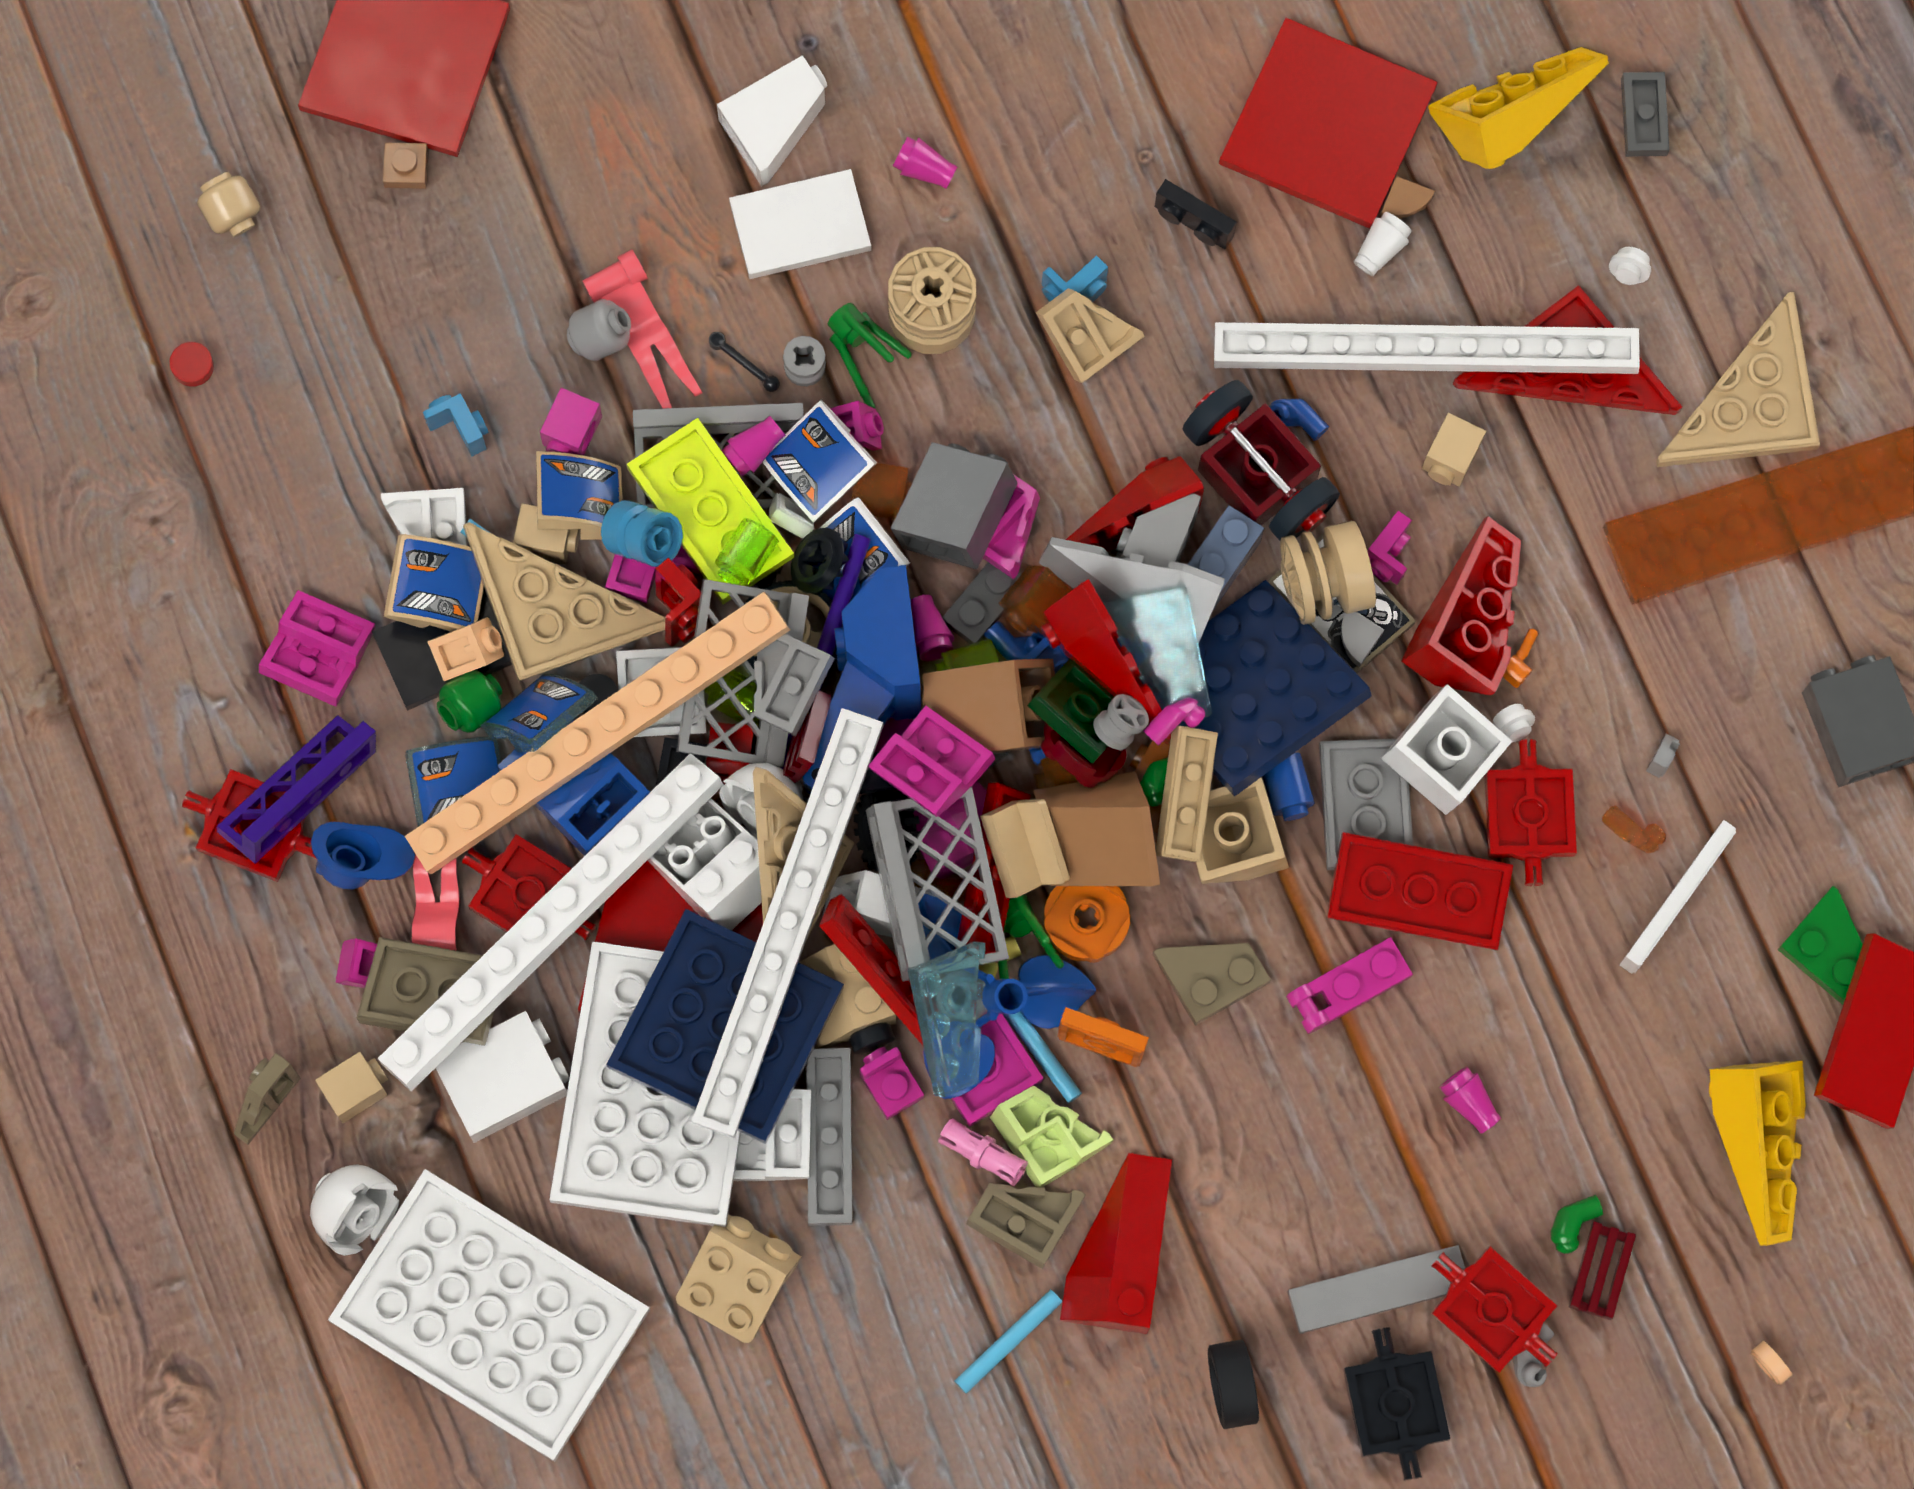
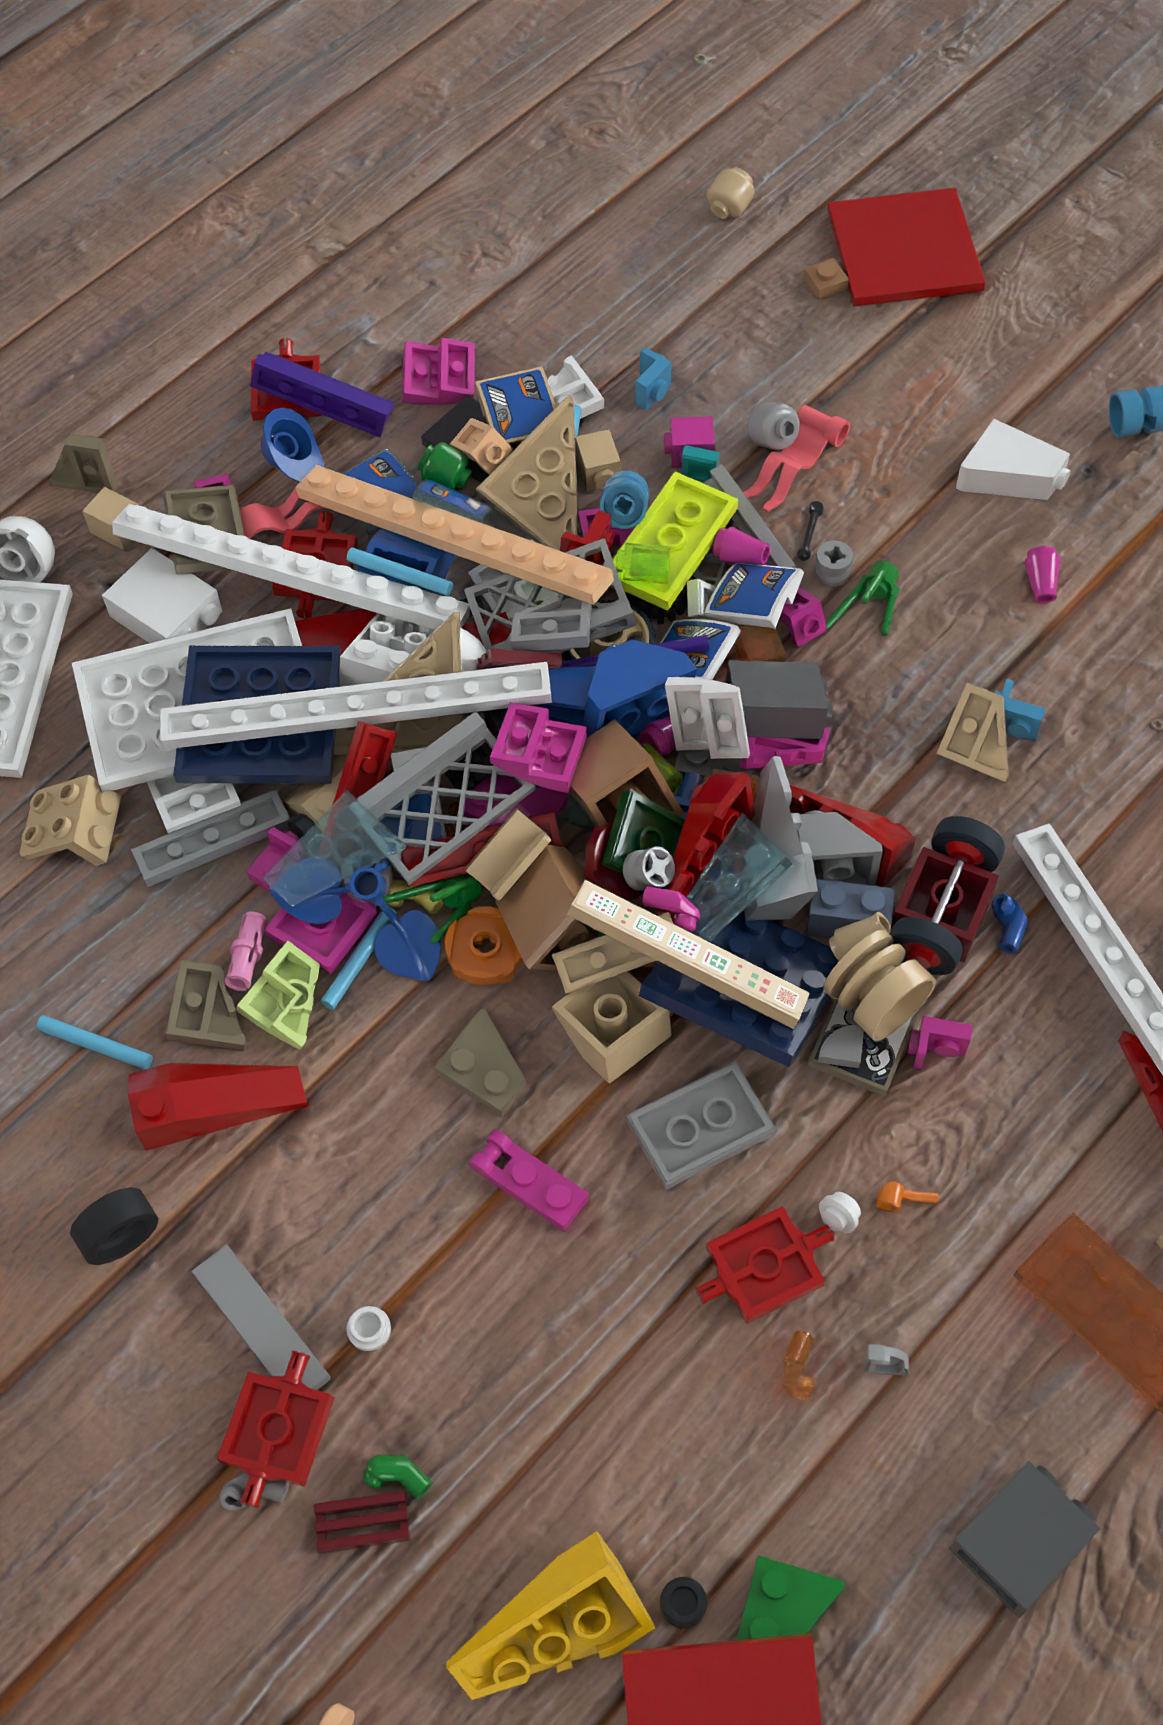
camera: 70 degrees right, 15 degrees down
(191, 364) = (605, 225): red tile -> none
(575, 492) = (640, 451): slope -> none
(607, 431) = (698, 463): none -> teal tile
(618, 807) = (400, 571): none -> medium azure bar
(800, 224) = (941, 520): white tile -> none
(810, 551) = (672, 624): black gear -> none
(929, 322) = (933, 616): tan wheel -> none
(961, 580) = (707, 717): none -> white slope
(1102, 1037) = (381, 990): orange plate -> none
(1206, 222) = (1130, 758): black plate -> none
(1232, 729) = (689, 954): none -> tan tile
(1263, 564) = (851, 934): none -> tan cone
(1289, 789) = (679, 1050): blue brick -> none
(1396, 1404) = (156, 1384): black plate -> none
(1419, 891) = (642, 1200): red tile -> none
(1428, 1192) = (368, 1328): none -> white plate
(1446, 749) = (780, 1158): white brick -> none
(1453, 450) = (1057, 1054): tan brick -> none
(1469, 620) = (908, 1134): red wedge -> none
(1469, 1098) = (470, 1327): dark pink cone -> none
(1678, 897) = (755, 1432): white tile -> none
(1789, 1027) = (683, 1602): none -> black tile

